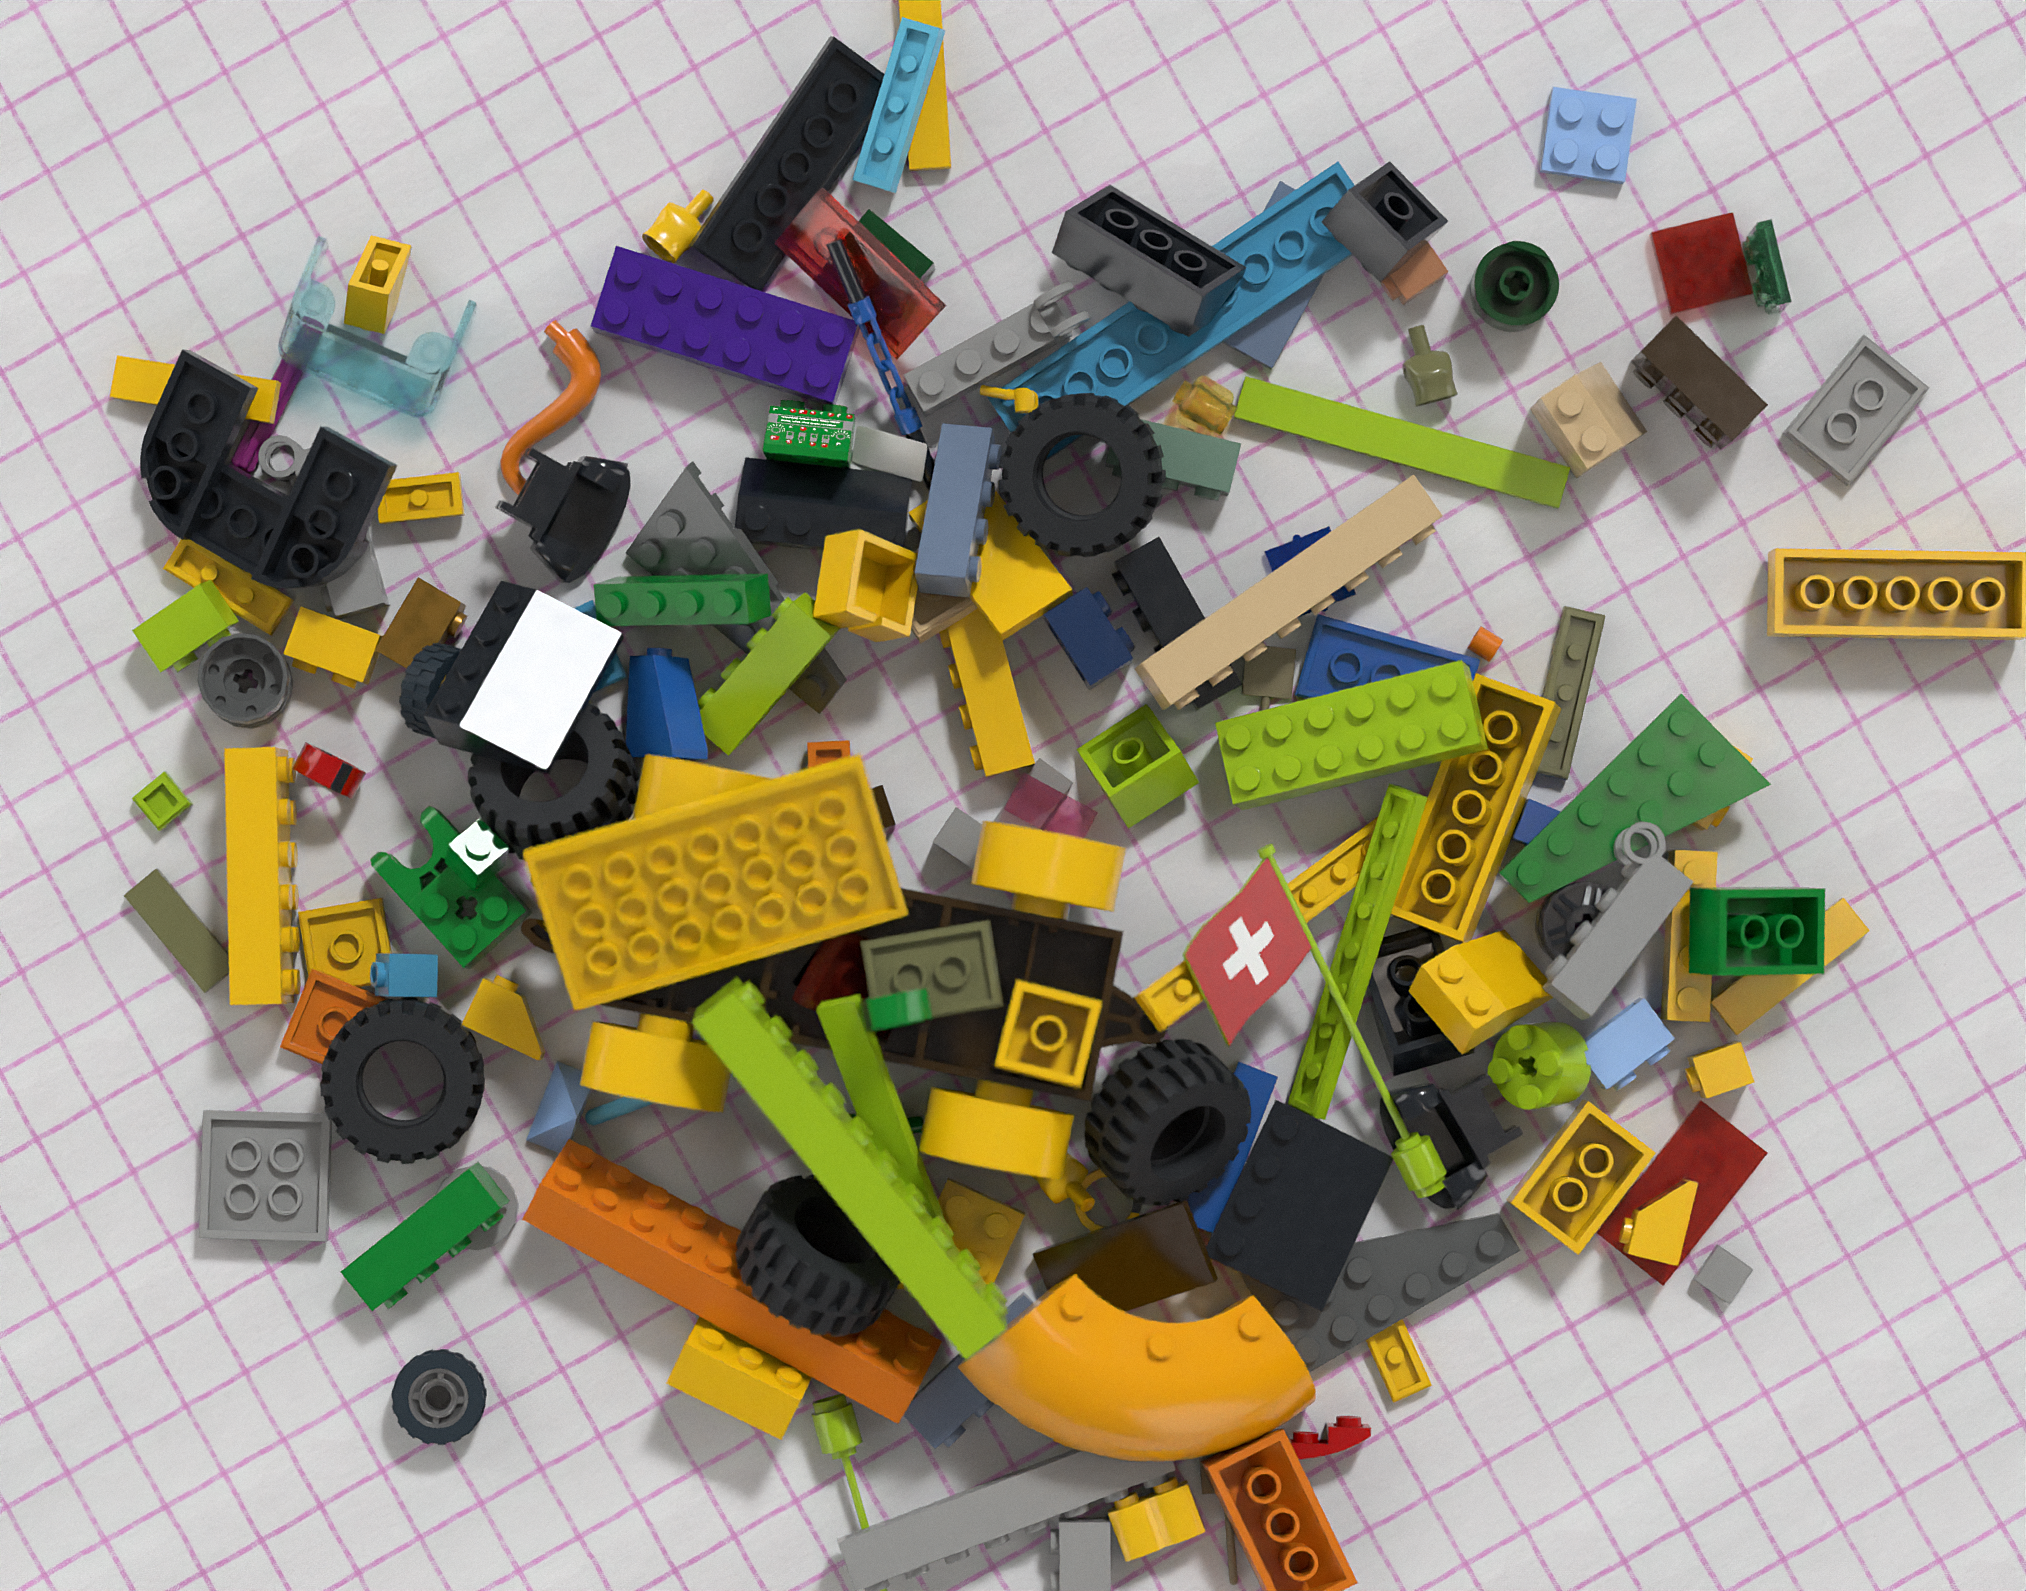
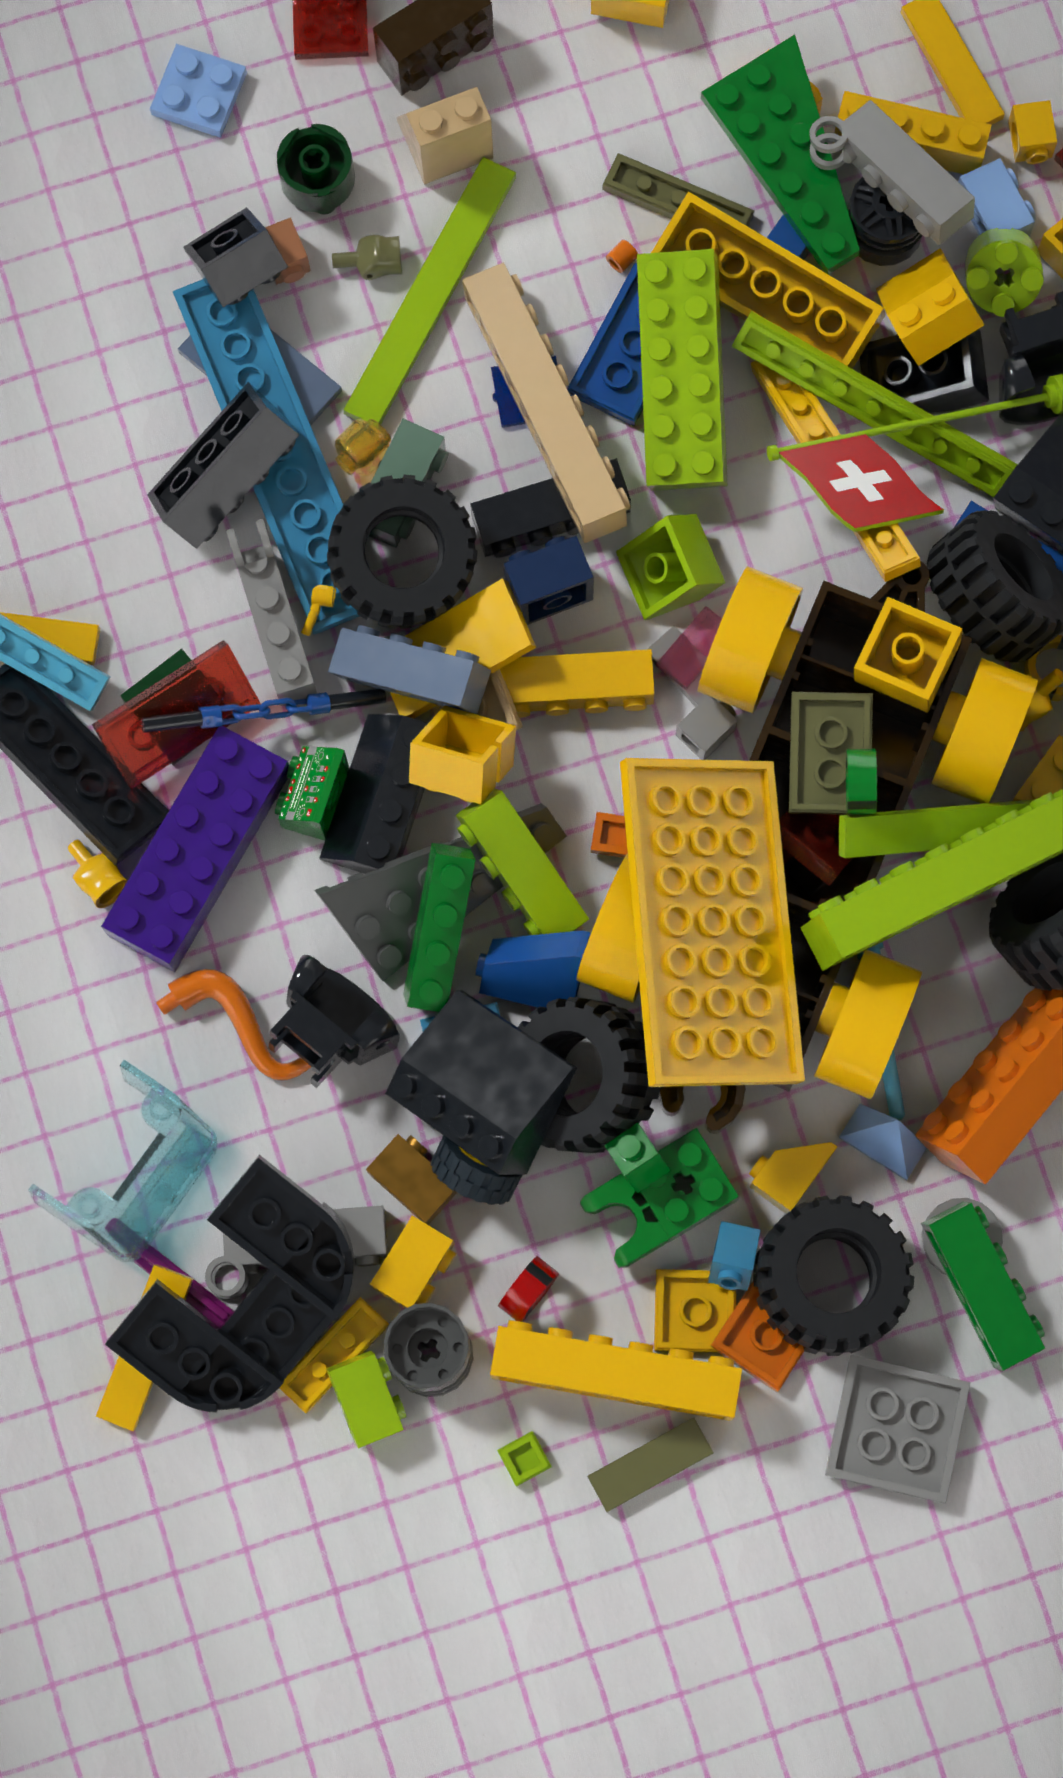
camera: 80 degrees left, 10 degrees down
(376, 284) = (86, 1158): yellow slope -> none
(422, 498) = (294, 1149): yellow plate -> none
(889, 453) = (345, 722): white sticker -> none
(1270, 675) = (615, 440): dark tan piece -> none
(1756, 930) = (921, 66): green brick -> none

